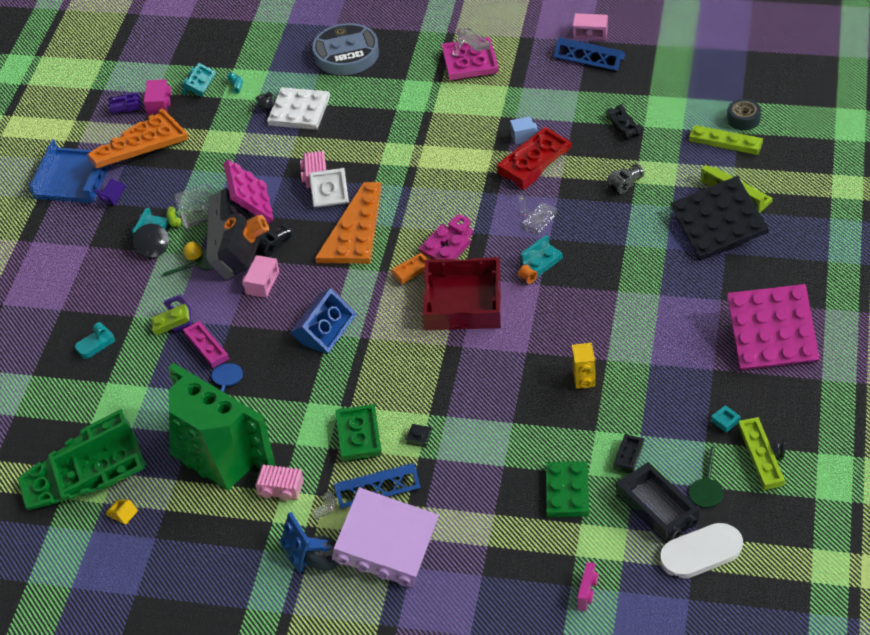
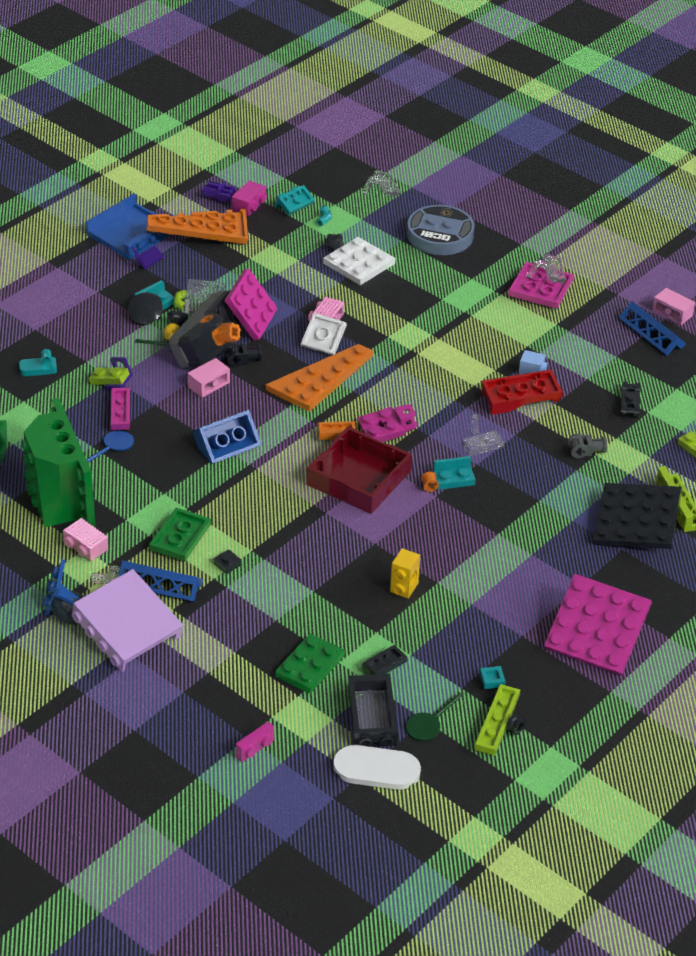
camera: 25 degrees right, 5 degrees down
(186, 235) = (177, 317): none -> black piece
(261, 27) = (385, 181): none -> clear plate

